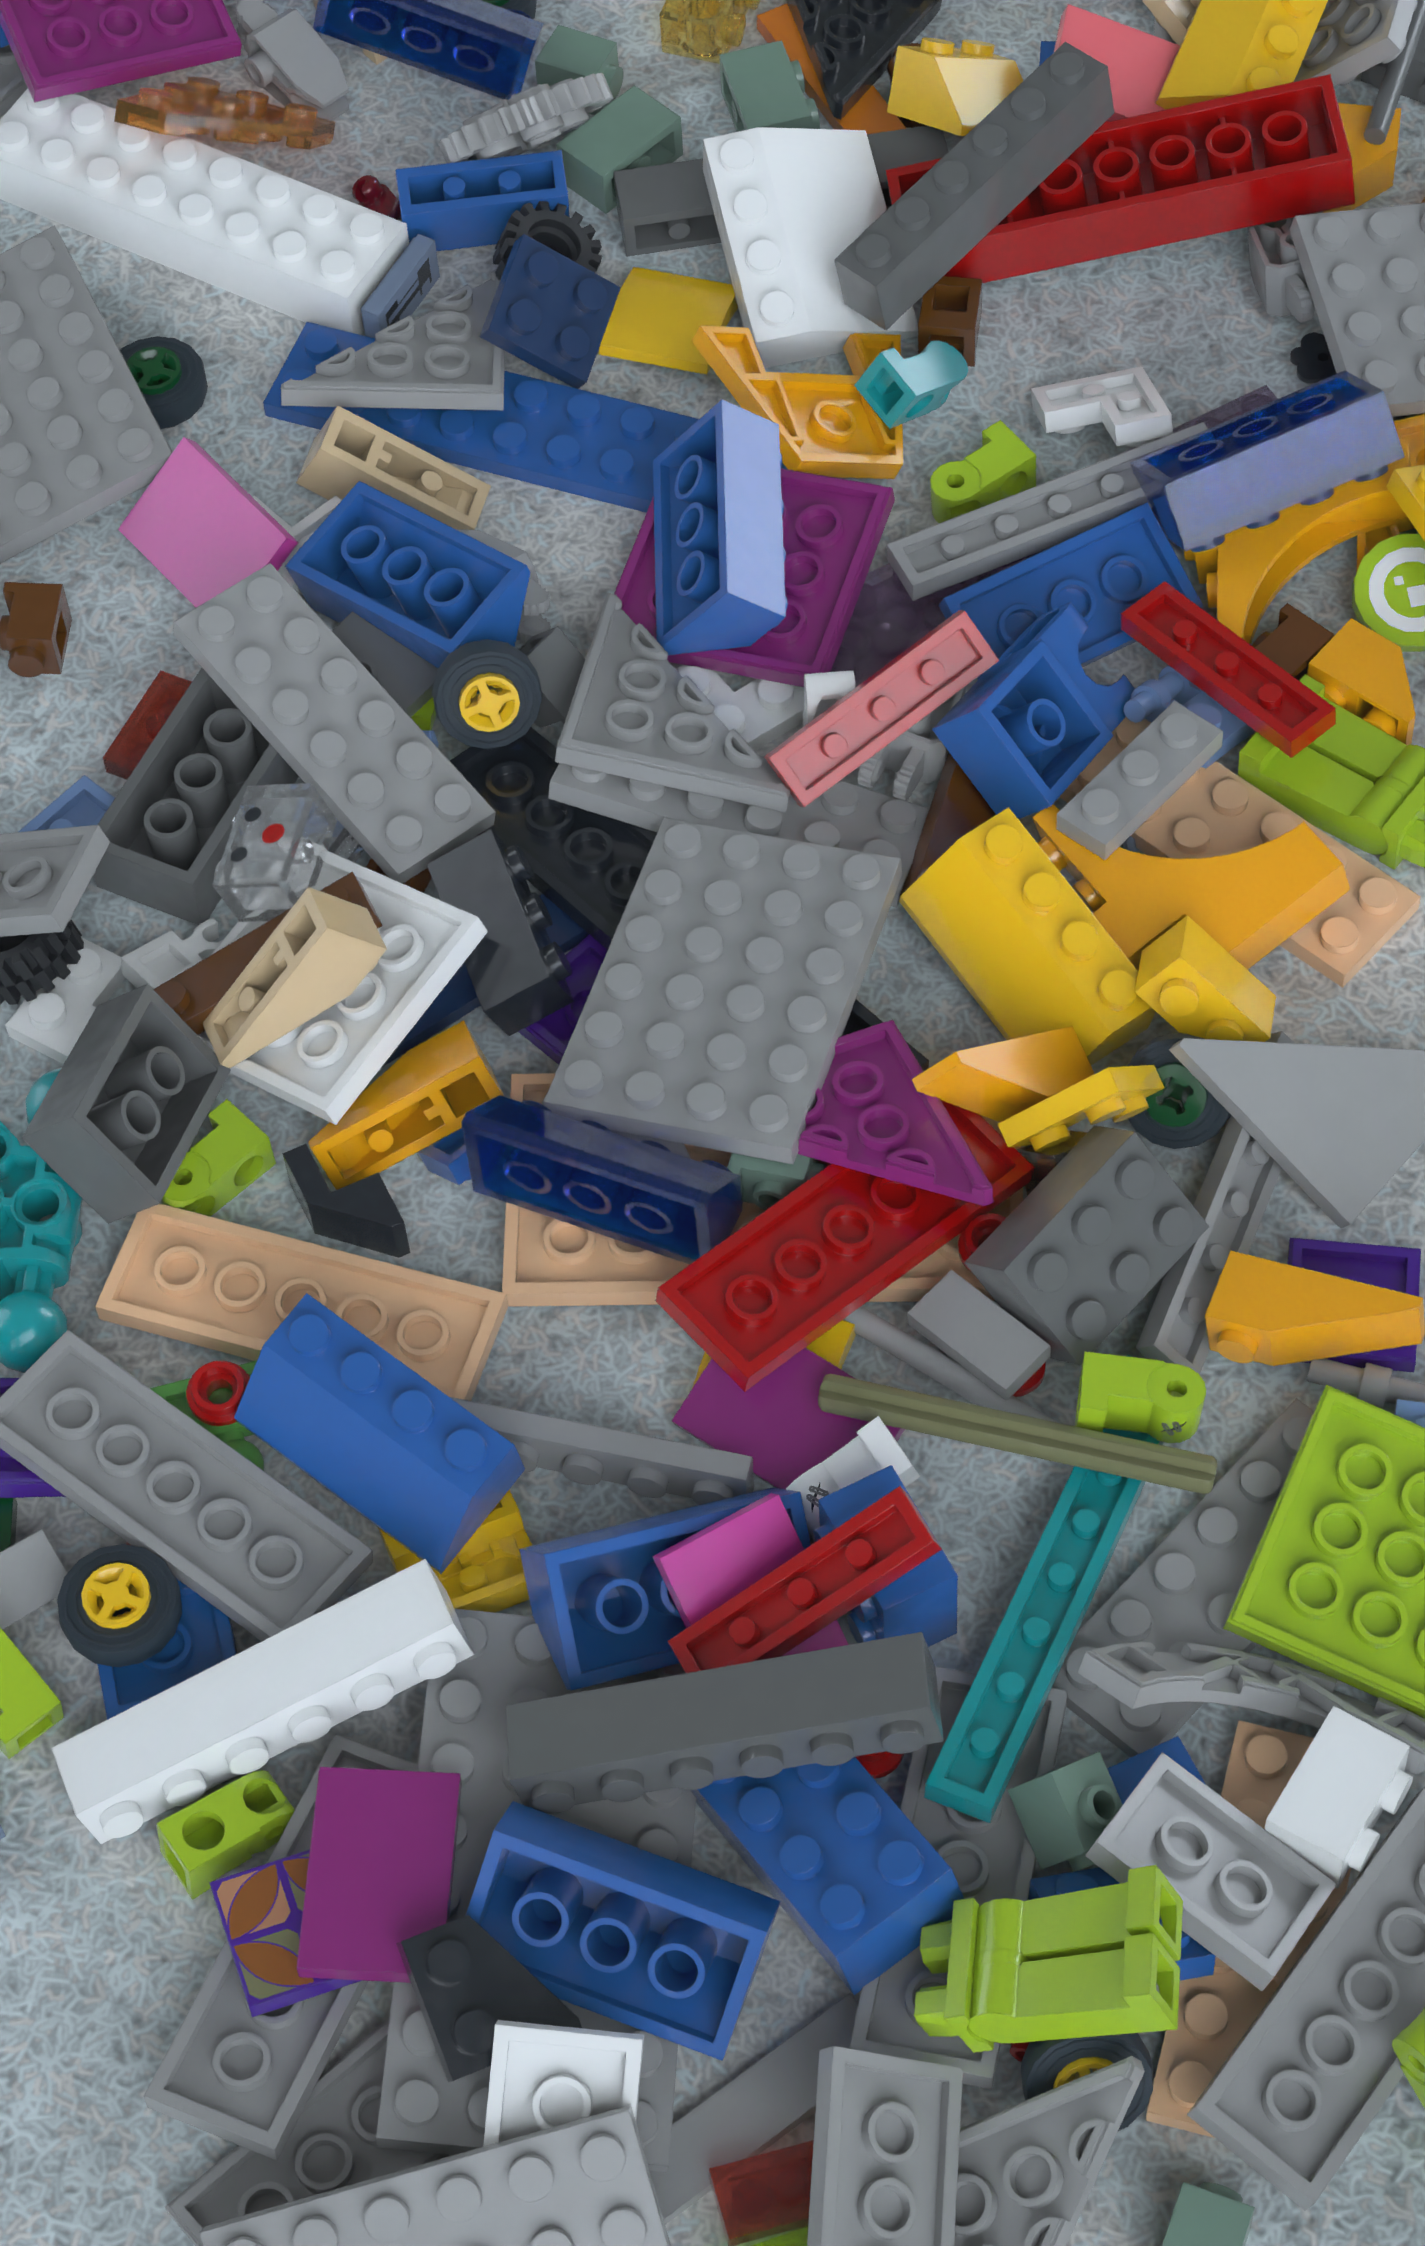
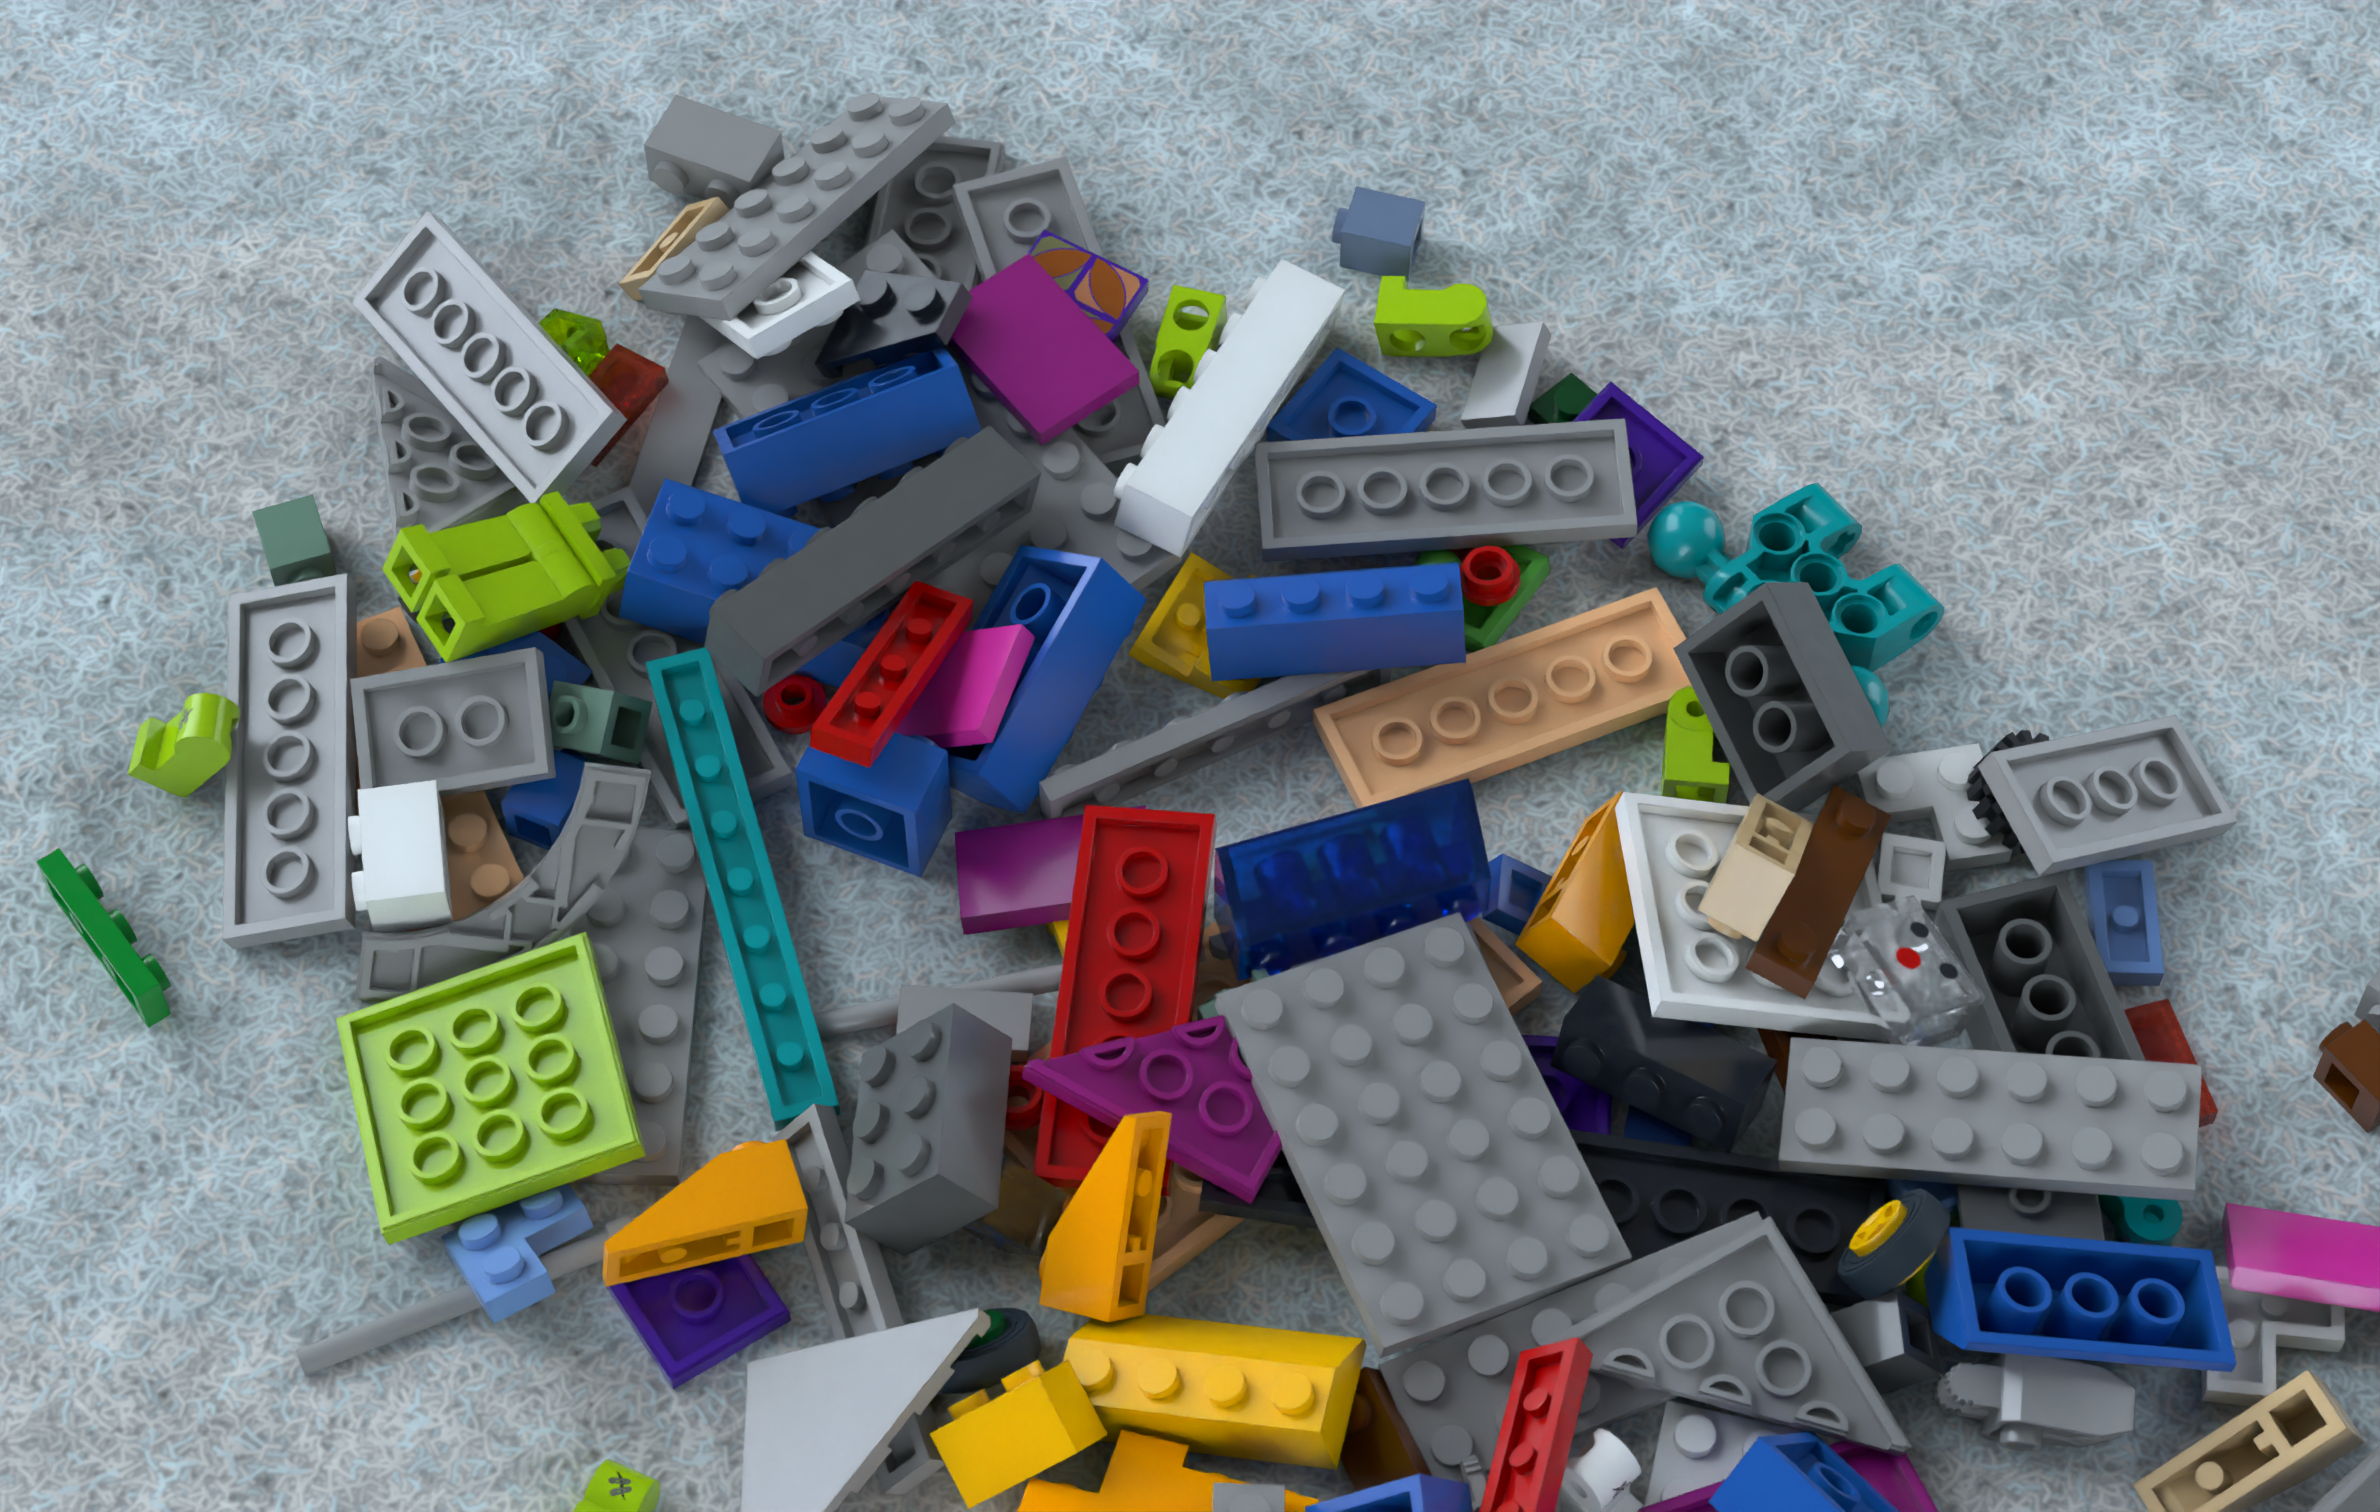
camera: 135 degrees right, 0 degrees up
(109, 1582) = (1404, 374): black wheel -> none
(354, 1214) = (1533, 792): black slope -> none
(861, 1457) = (961, 832): white leg -> none
(1018, 1433) = (858, 949): olive axle -> none
(1105, 1095) = (1010, 1222): yellow plate -> none
(1139, 1396) = (791, 1045): lime leg -> none

